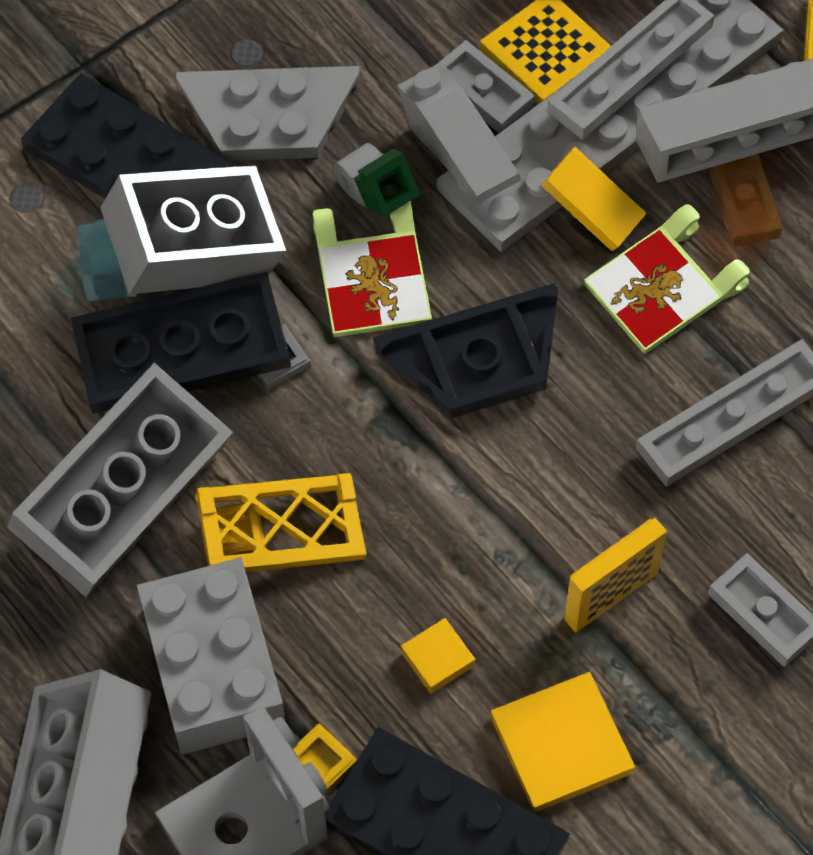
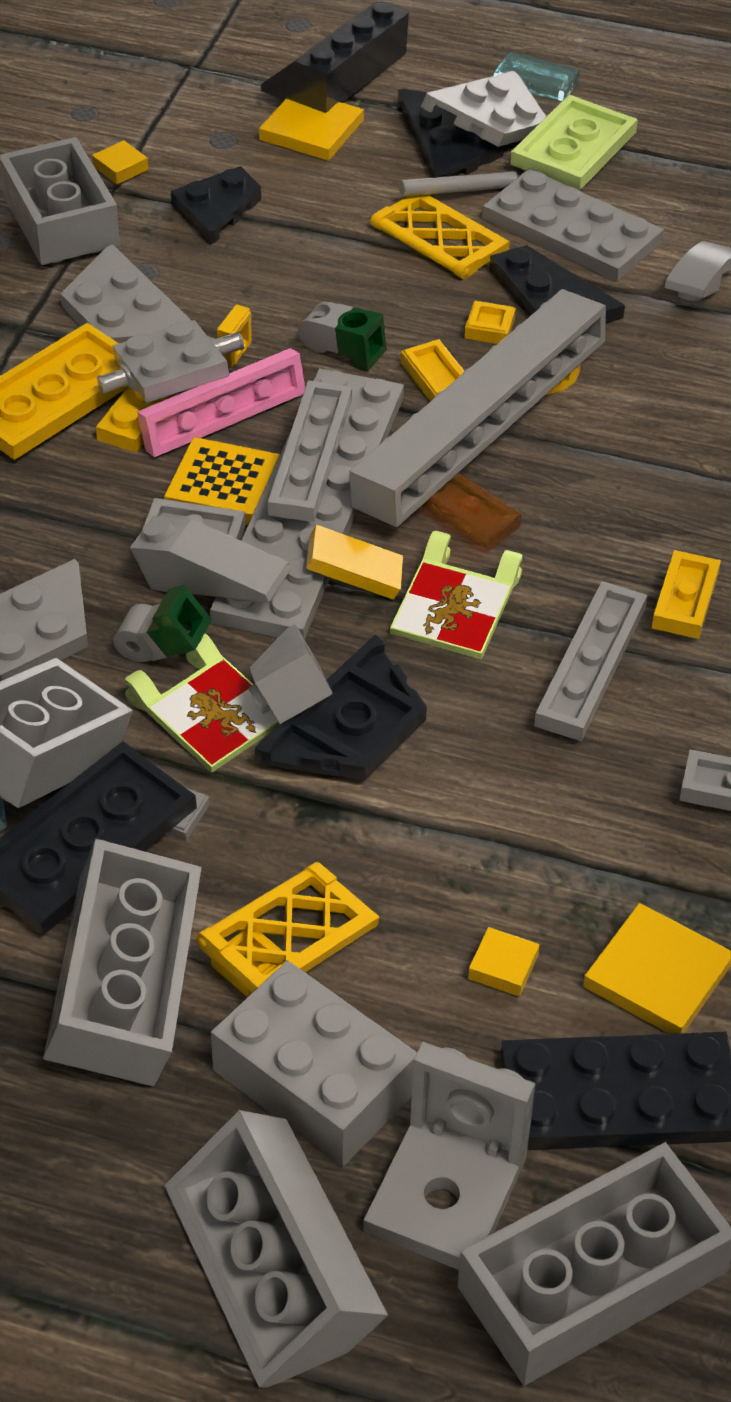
camera: 35 degrees left, 15 degrees down
(448, 285) = (288, 677): none -> light grey slope
(614, 574) = (606, 812): yellow tile -> none

